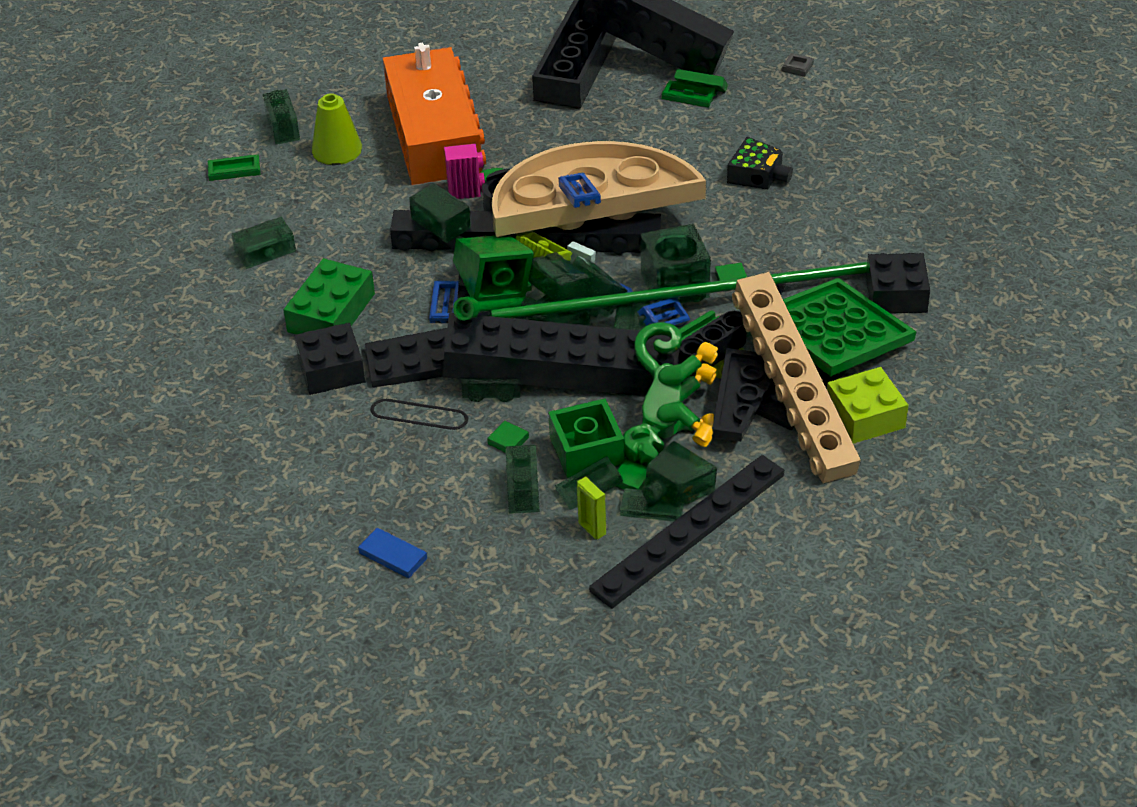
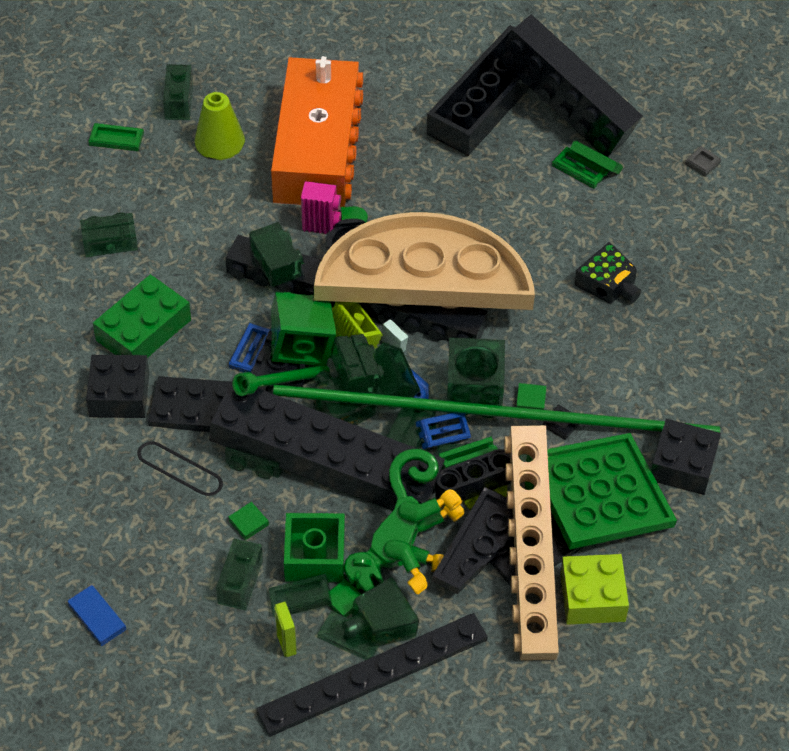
camera: 15 degrees right, 10 degrees up
(574, 191) = (407, 286): blue tile -> none

